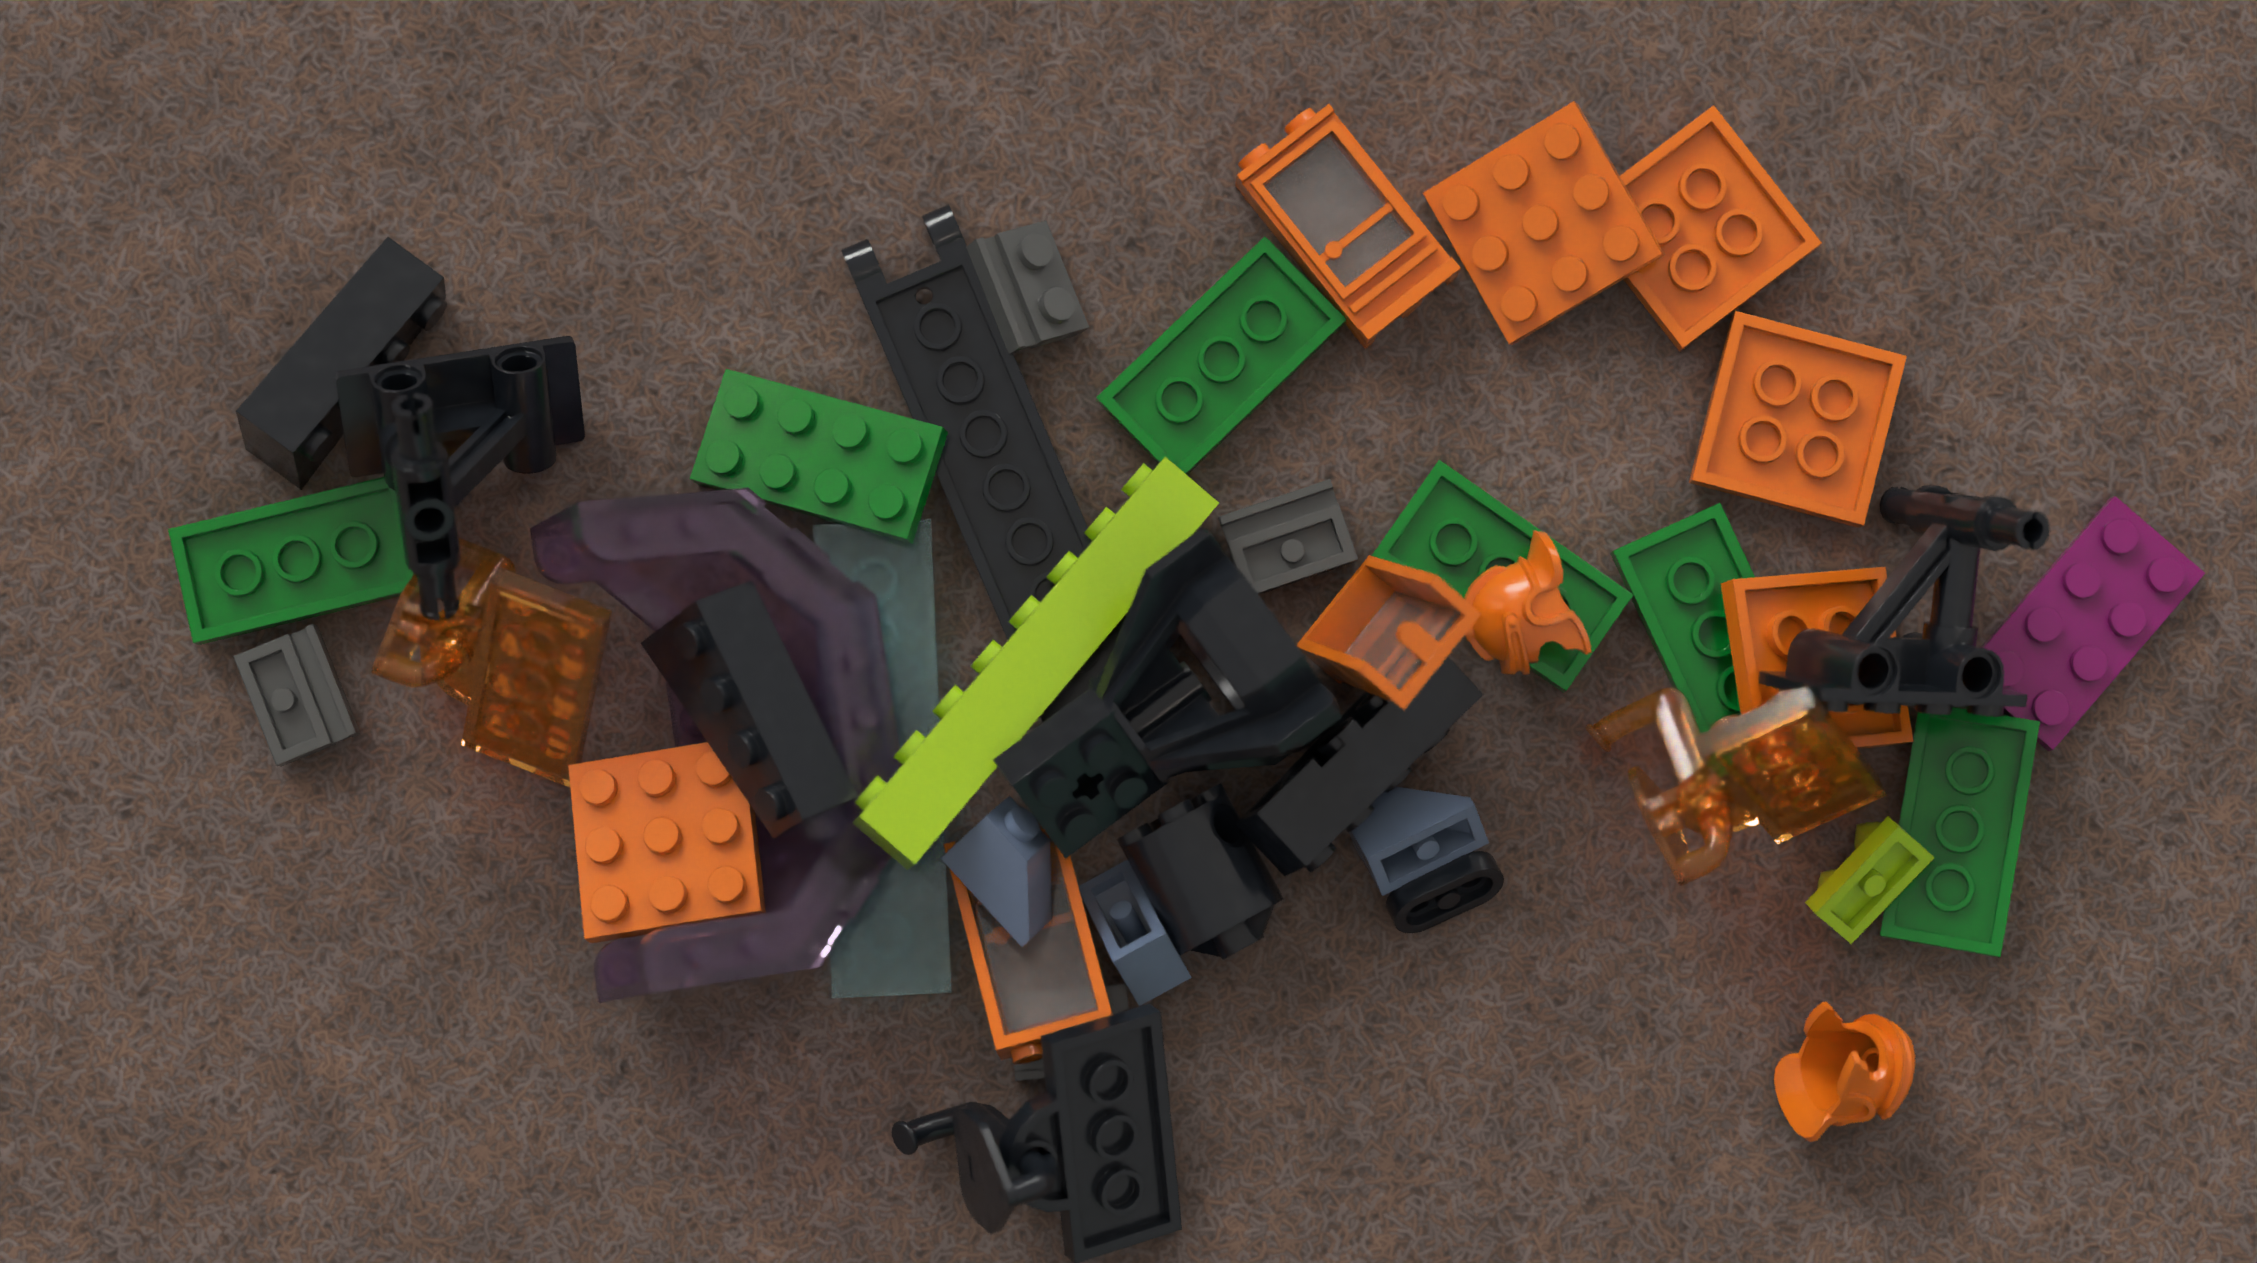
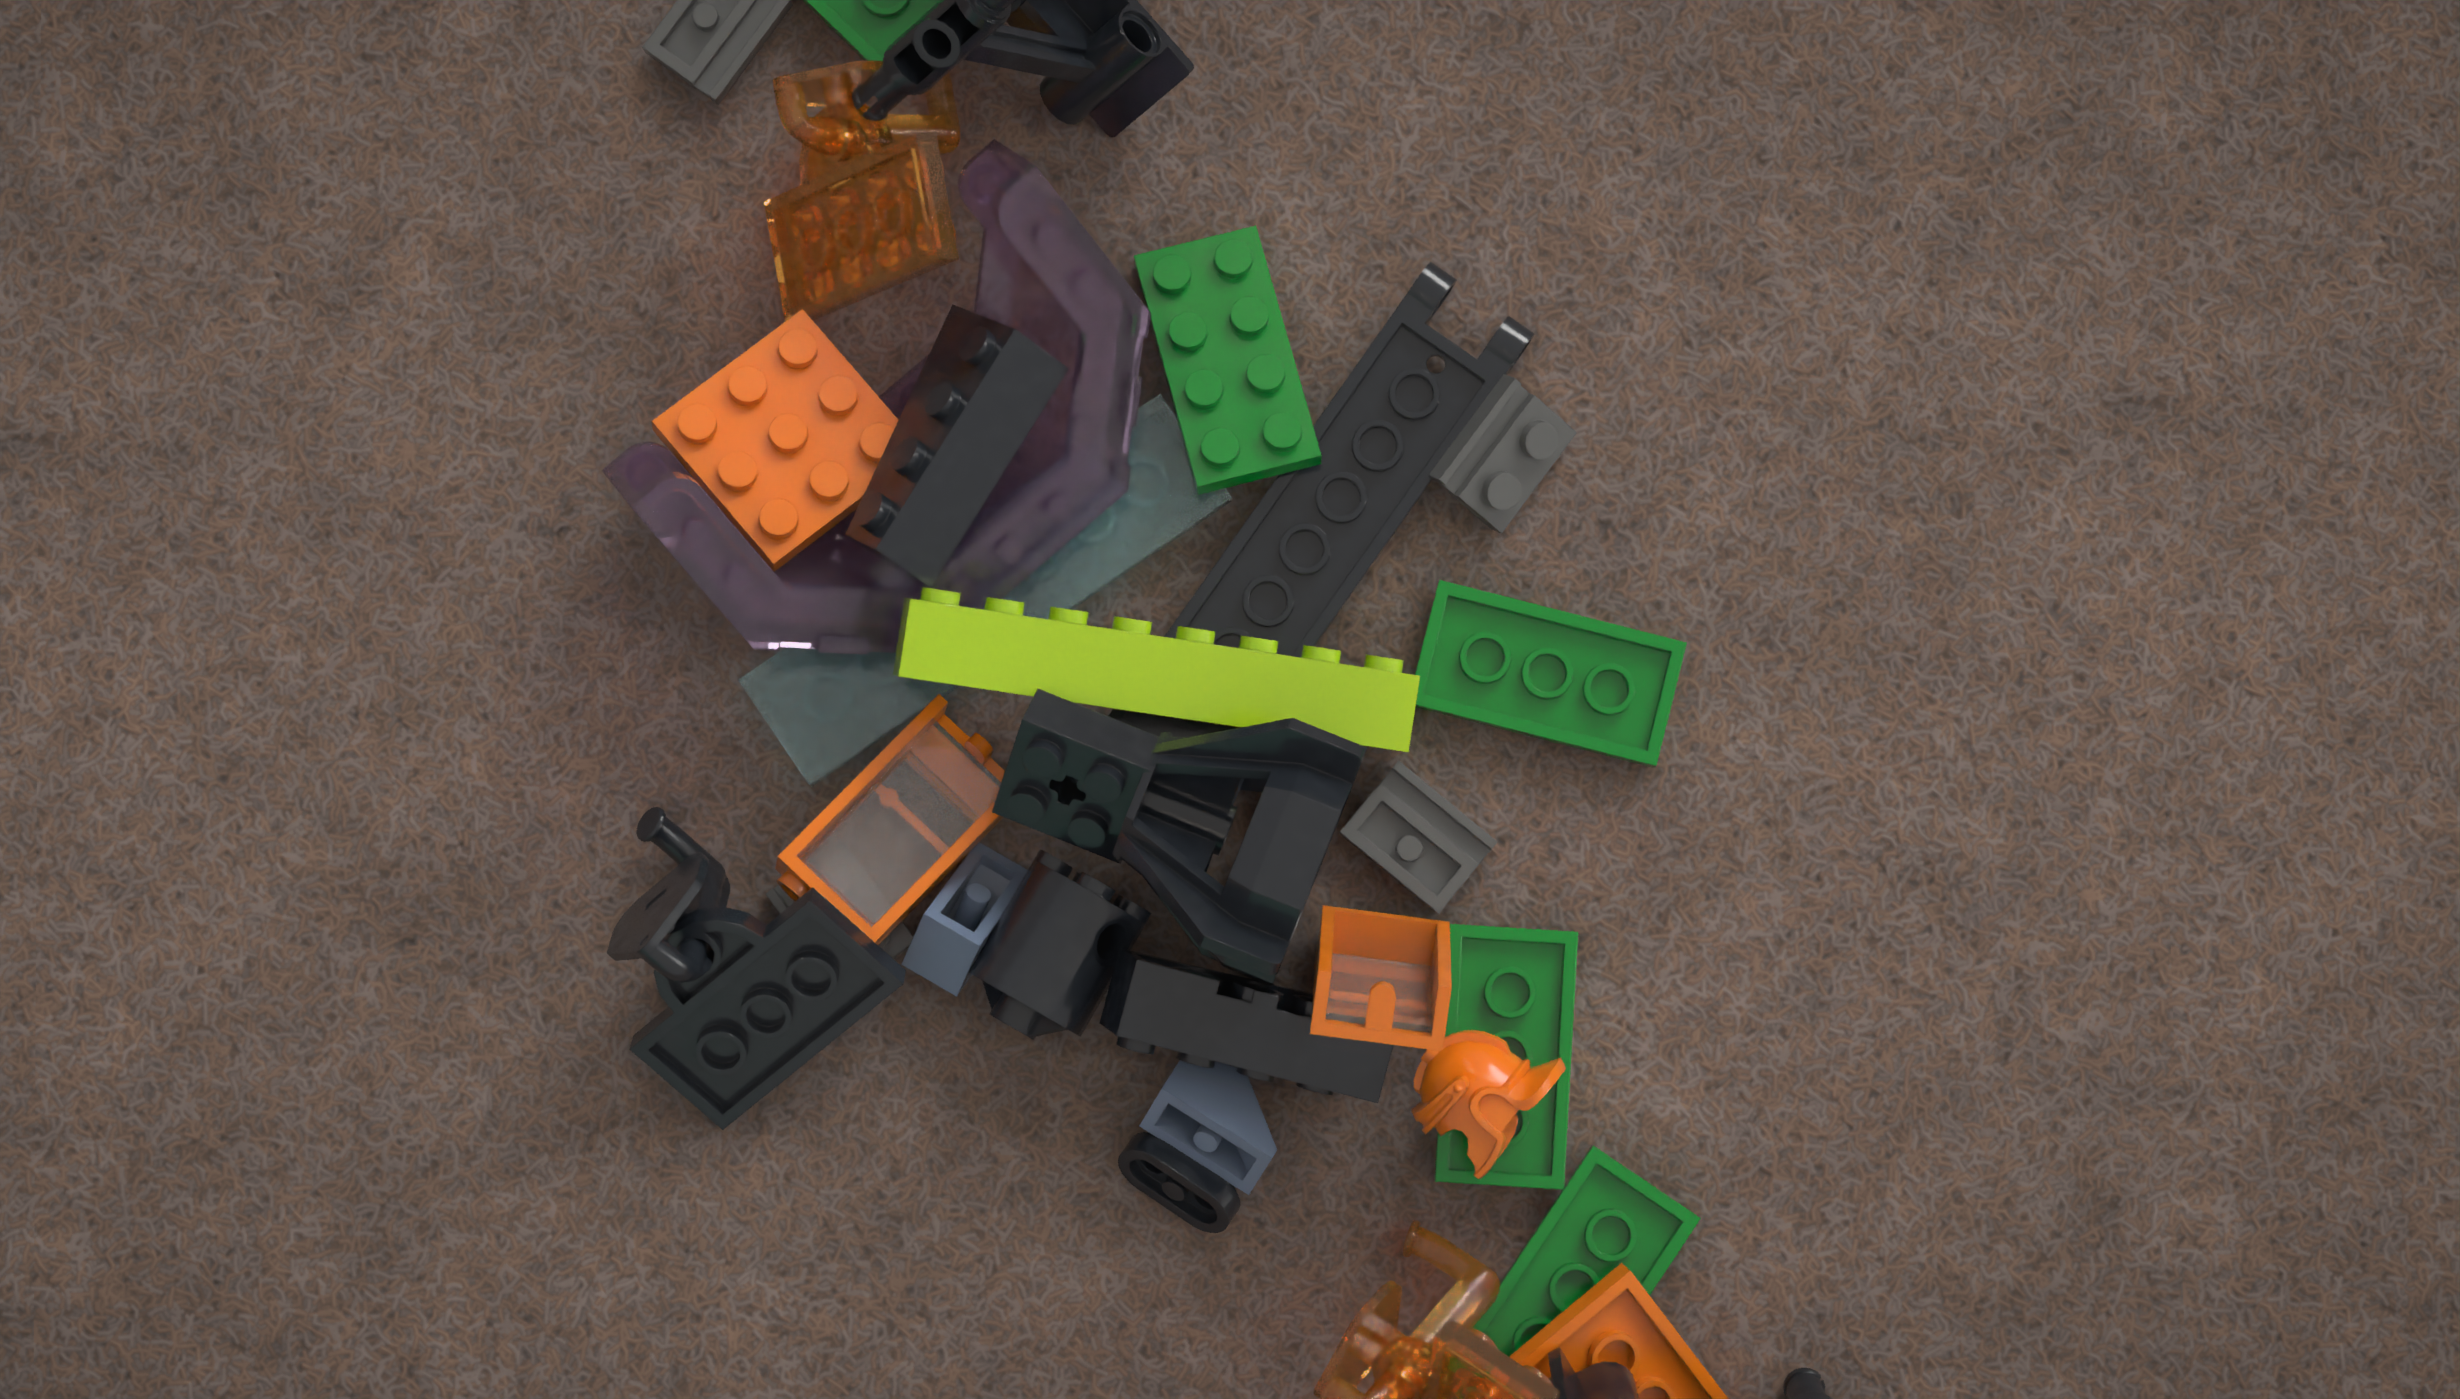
camera: 55 degrees right, 0 degrees up
(1007, 869) = (949, 766): sand blue slope -> none
(1344, 223) = (1745, 709): orange door -> none
(1543, 223) = (1860, 893): orange plate -> none
(1717, 223) = (1947, 1040): orange plate -> none
(1798, 419) = (1826, 1244): orange plate -> none

